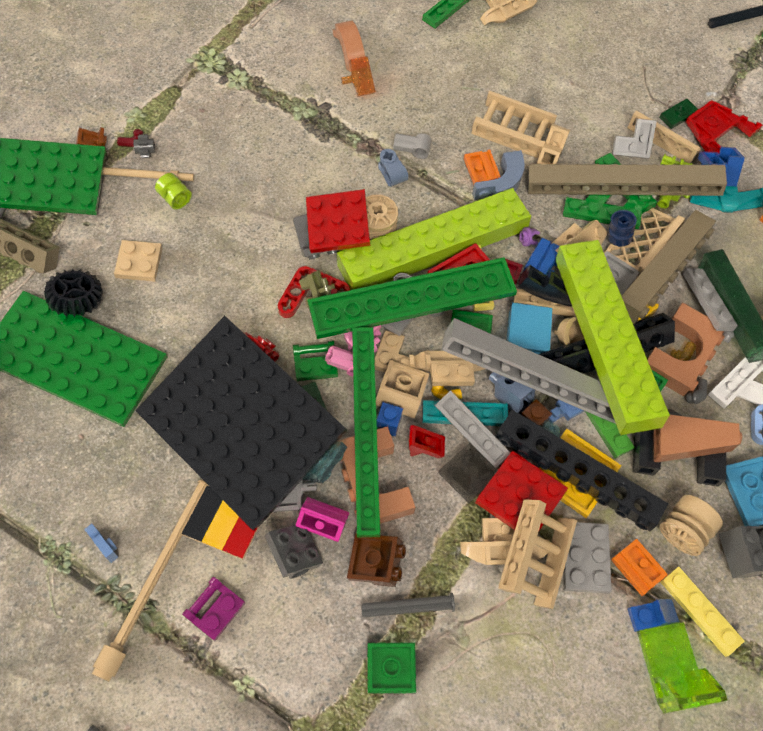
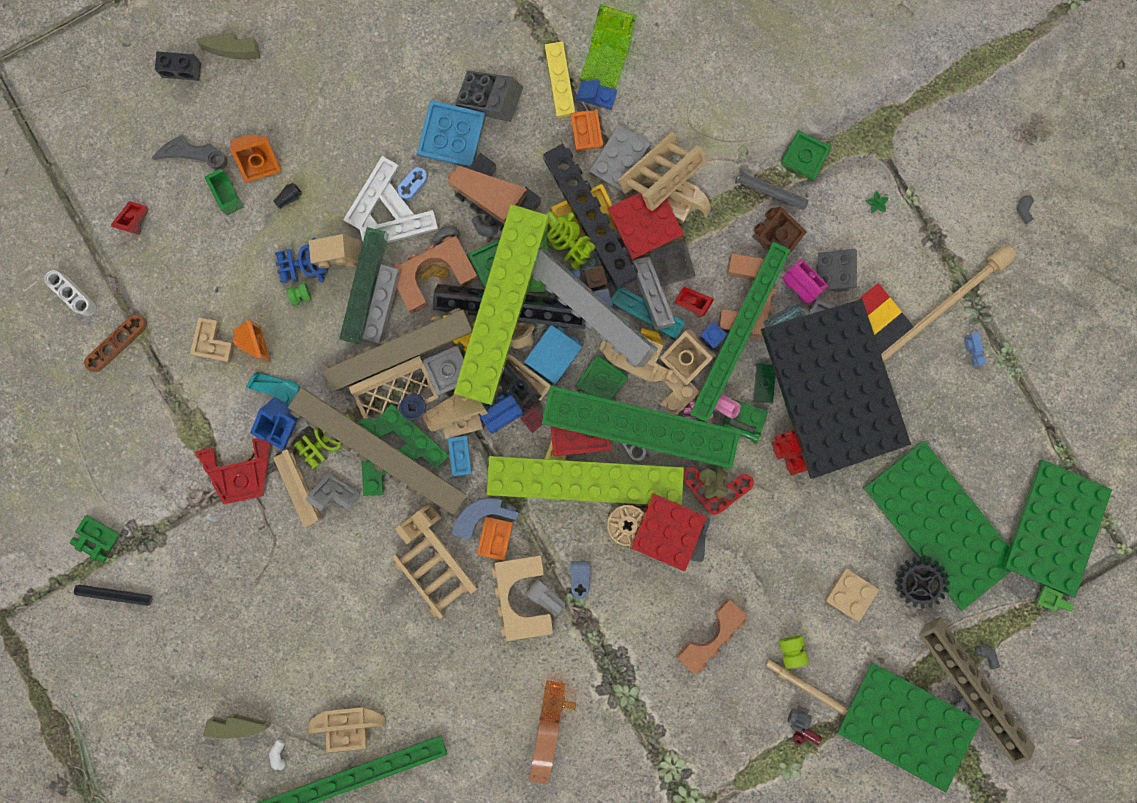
camera: 150 degrees left, 20 degrees up
(87, 137) = (846, 752): dark orange bracket -> none
(219, 614) = (909, 254): magenta plate -> none
(259, 156) = (696, 655): none -> nougat arch
(282, 657) = (877, 202): none -> green plant
(426, 116) = (515, 624): none -> tan arch
(526, 236) = (496, 445): medium lavender plate -> none
(553, 215) = (460, 456): none -> dark azure plate
(589, 438) = (569, 232): none -> lime torso
(678, 113) = (263, 508): dark green plate -> none
(691, 525) = (532, 134): tan wheel -> none

